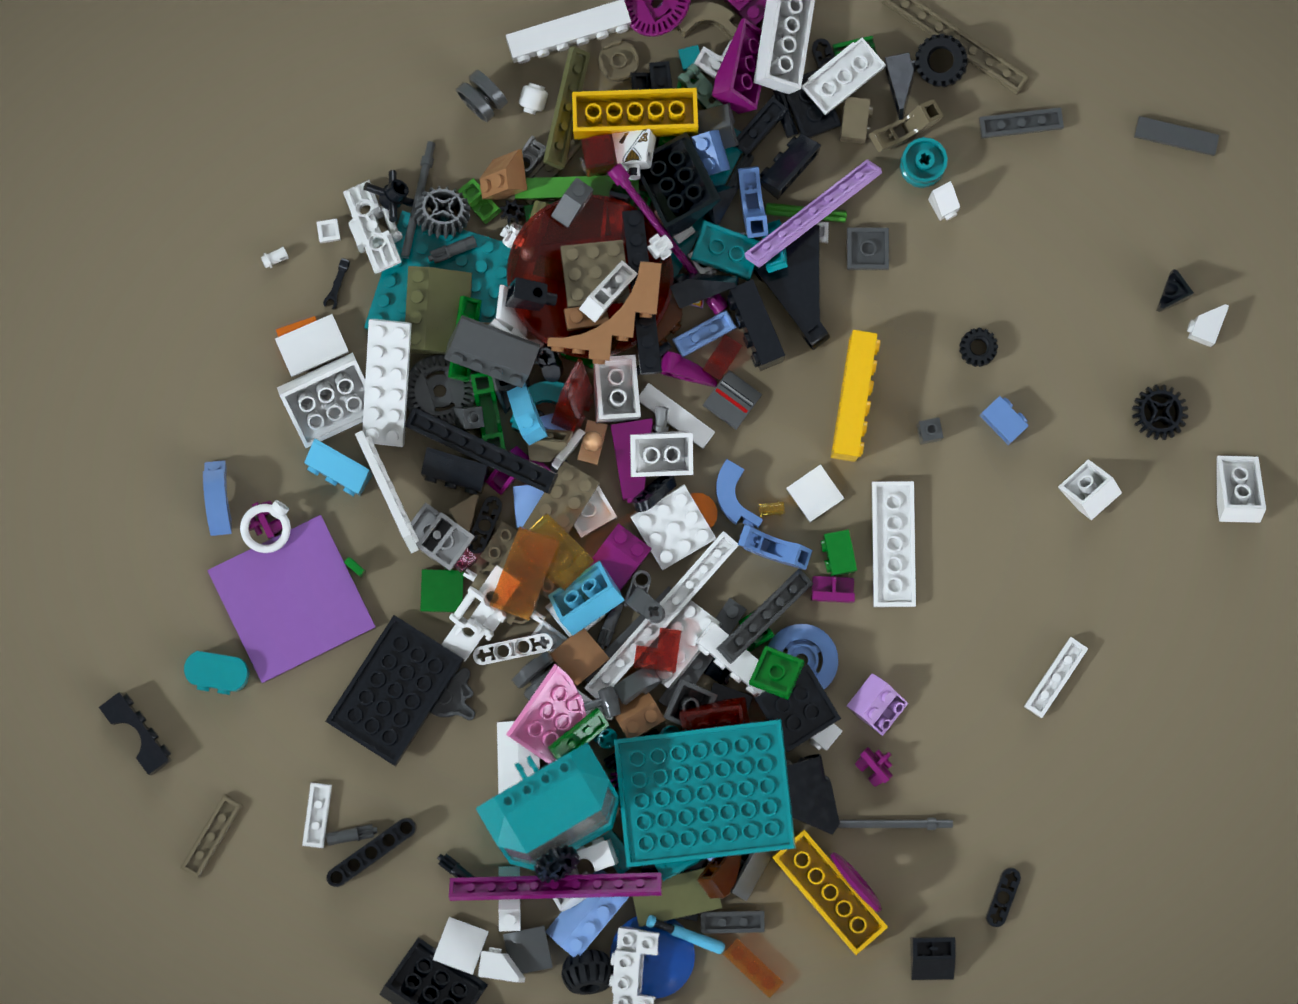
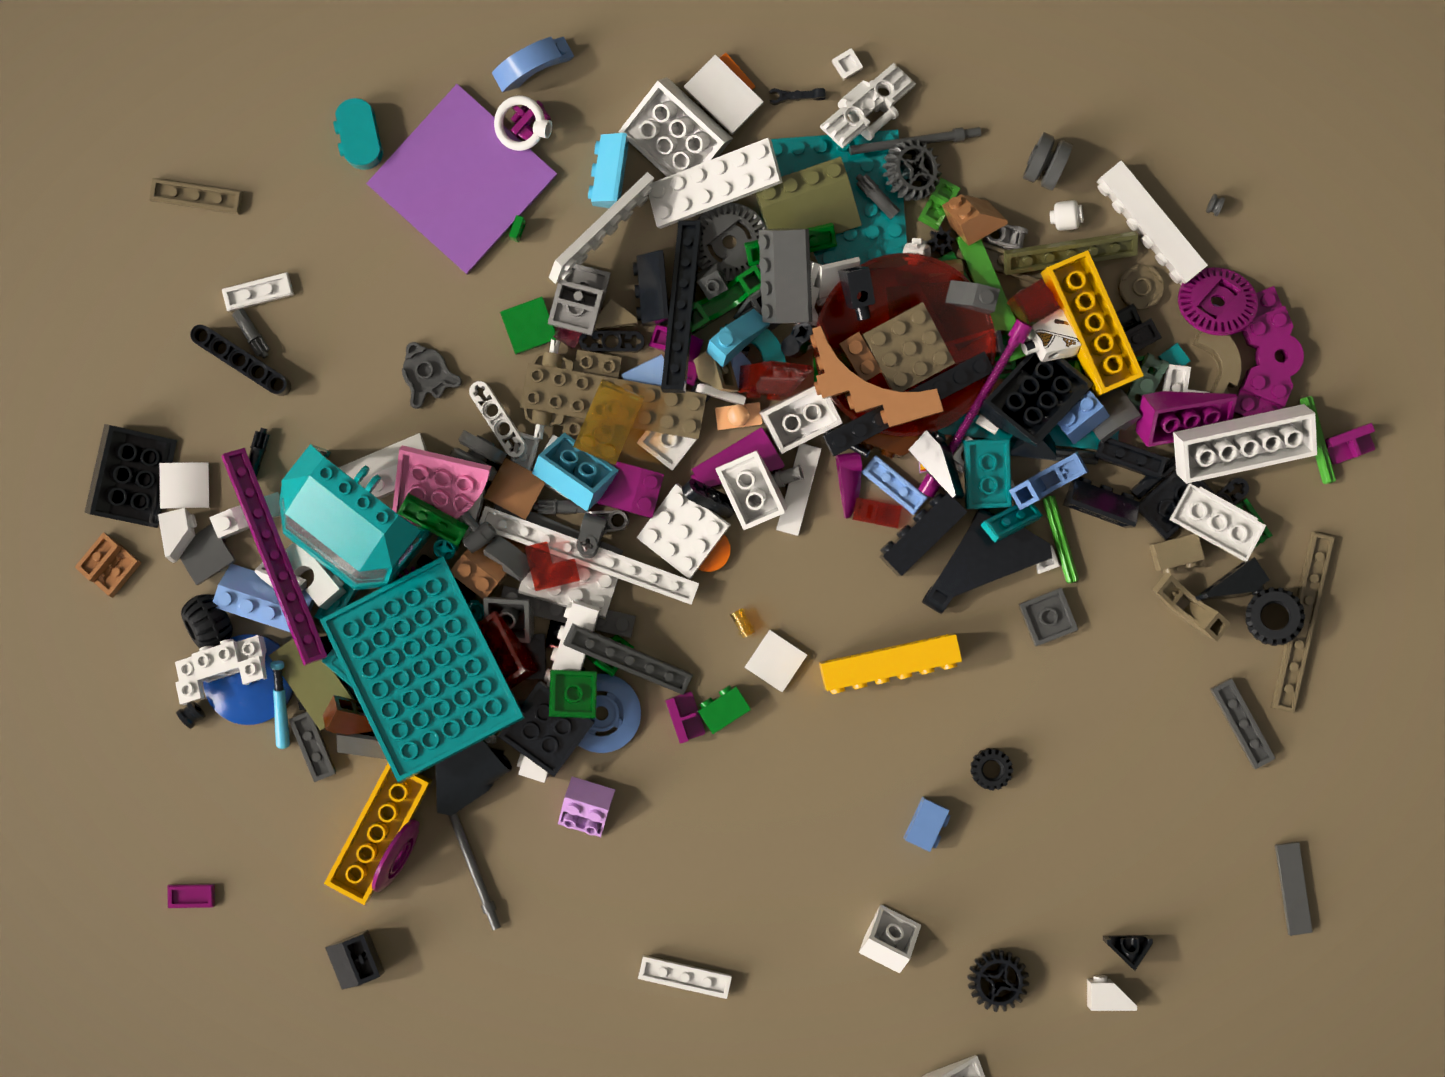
camera: 75 degrees right, 5 degrees up
(151, 754) = (254, 103): black arch -> none
(274, 257) = (798, 21): white pin -> none
(392, 195) = (908, 112): black bar -> none
(394, 690) = (409, 318): black plate -> none
(482, 622) = (516, 378): white piece -> none
(524, 573) = (572, 398): clear orange tile -> none
(556, 863) = (293, 548): black gear -> none
(608, 291) = (893, 368): white slope -> none
(660, 246) = (962, 404): white gear -> none
(726, 497) = (744, 568): medium blue arch -> none
(732, 400) = (837, 540): dark grey slope -> none
(753, 968) = (275, 784): clear orange plate -> none
(774, 548) = (702, 642): medium blue arch -> none
(813, 213) = (1061, 546): lavender tile -> none
(881, 773) = (526, 831): magenta hips -> none
(893, 544) = (755, 760): white plate -> none
(923, 150) = (1174, 640): teal wheel -> none
(930, 431) = (885, 753): dark grey brick -> none
(944, 201) = (1128, 677): white slope -> none
(1002, 880) = (426, 1002): black beam -> none

